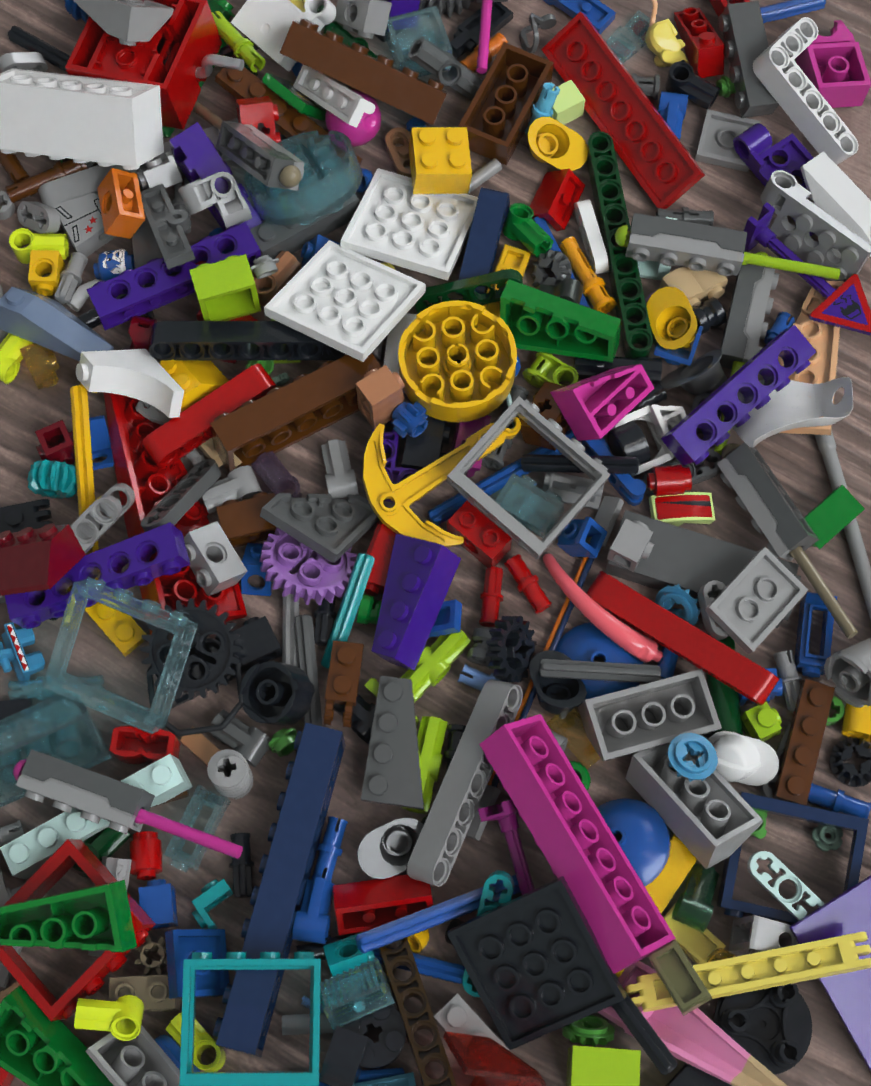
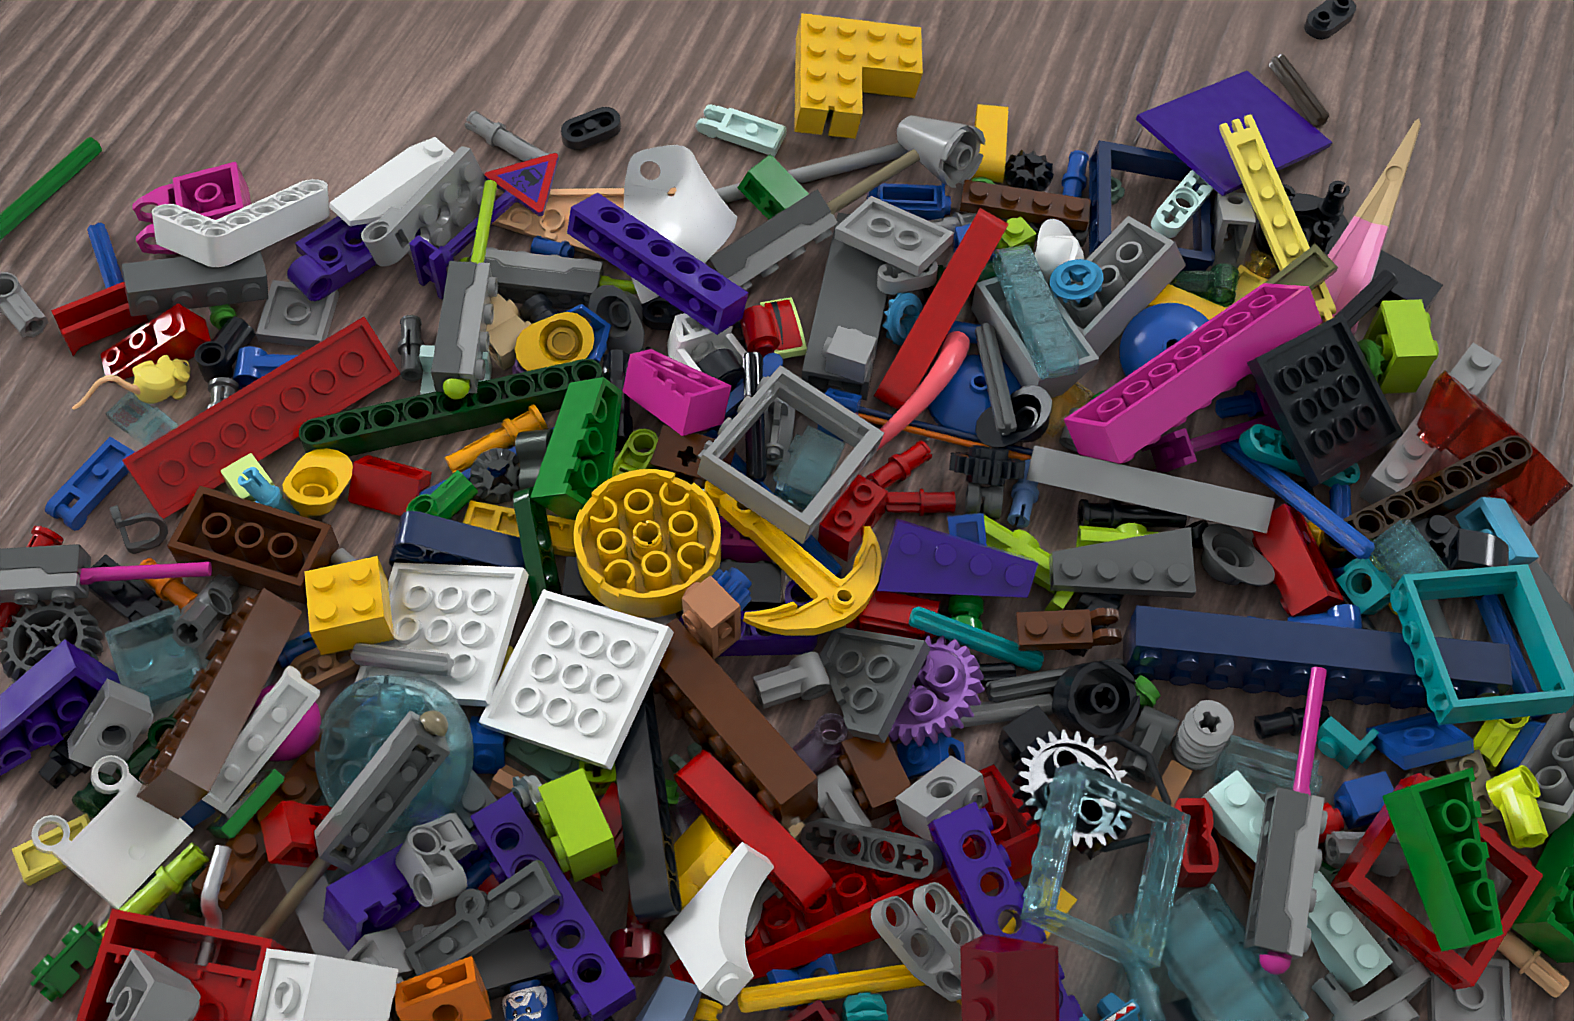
camera: 100 degrees left, 10 degrees down
(389, 193) = (402, 659): none -> light grey axle
(591, 236) = (429, 442): white beam -> none
(655, 706) = (1035, 312): none -> clear light blue beam

